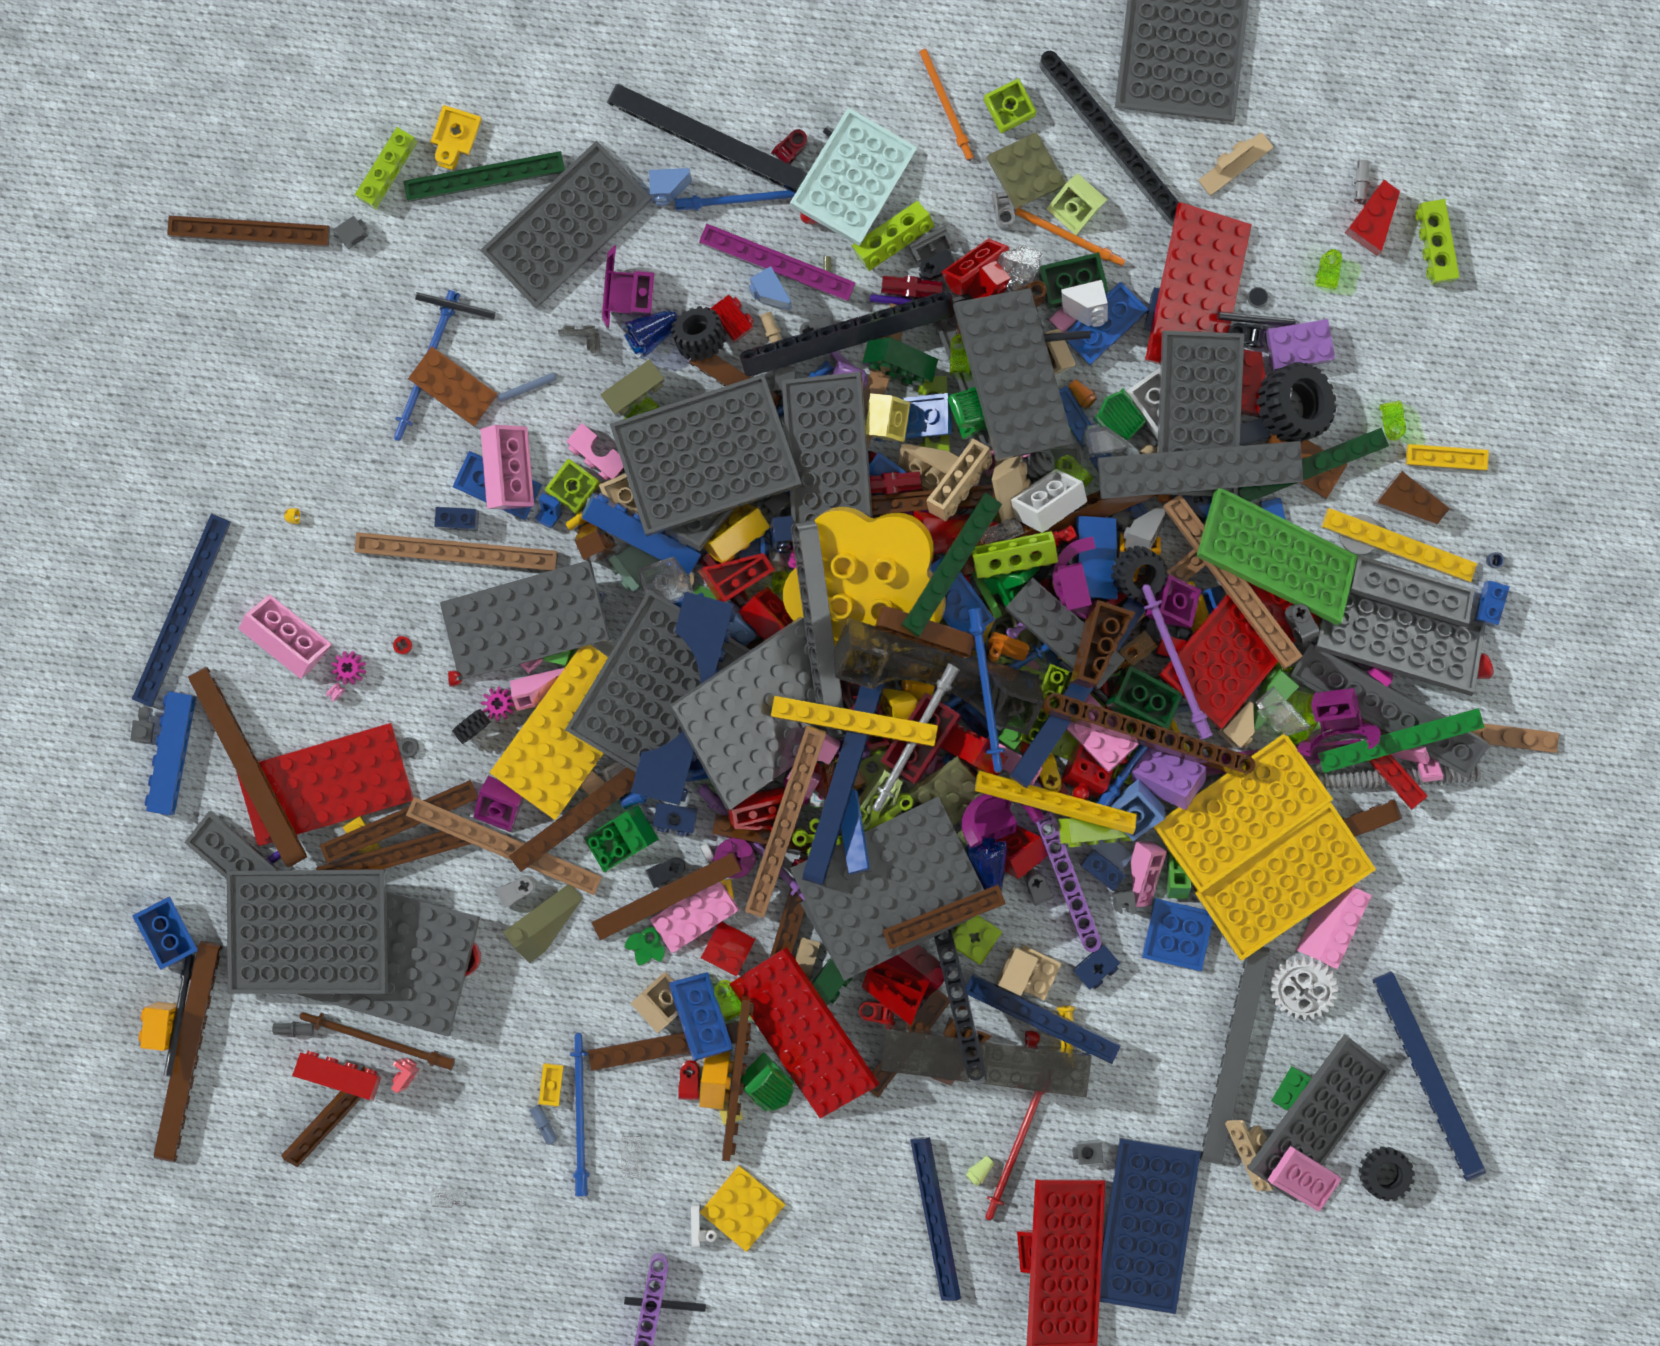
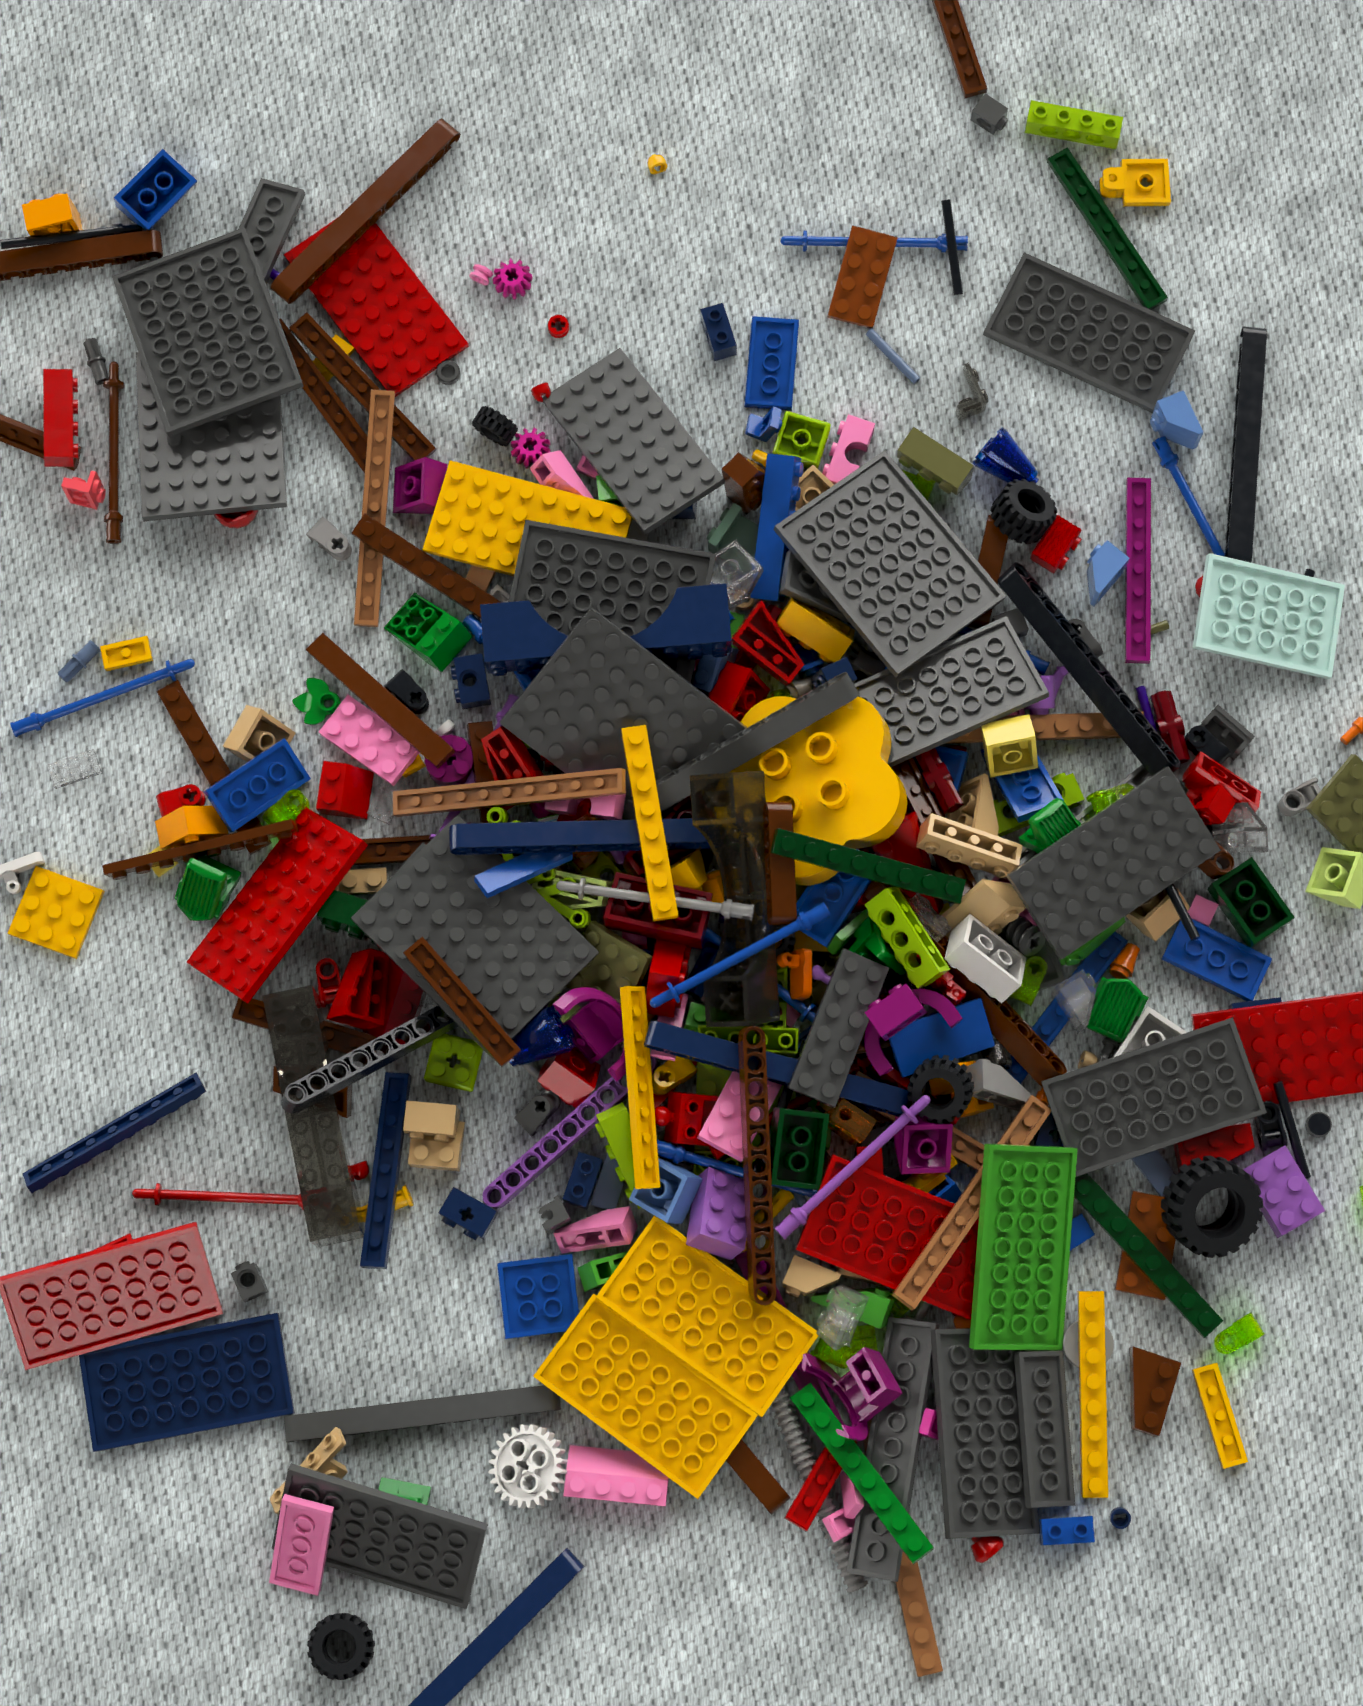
camera: 70 degrees right, 10 degrees down
(142, 729) = (368, 93): dark grey plate -> none
(171, 753) = (352, 130): blue brick -> none
(181, 610) = (511, 88): dark blue plate -> none
(284, 636) = (522, 201): bright pink slope -> none
(456, 551) = (682, 345): medium nougat plate -> none
(507, 467) = (795, 363): bright pink slope -> none
(538, 928) = (296, 578): olive wedge -> none
(626, 291) = (1039, 418): magenta piece -> none
(770, 327) = (1065, 588): tan pin -> none
(789, 148) = (1273, 537): dark red piece -> none
(893, 235) = (1220, 685): lime brick -> none
(899, 361) = (1078, 737): dark green brick -> none
(980, 1170) = (186, 1164): yellowish green cone -> none
(1086, 303) = (1230, 921): white slope -> none
(1099, 641) = (845, 1064): reddish brown wedge -> none
(1105, 254) = (1297, 931): orange bar -> none
(1200, 469) = (1089, 1121): dark grey plate -> none
(1303, 625) = (952, 1306): dark grey piece -> none

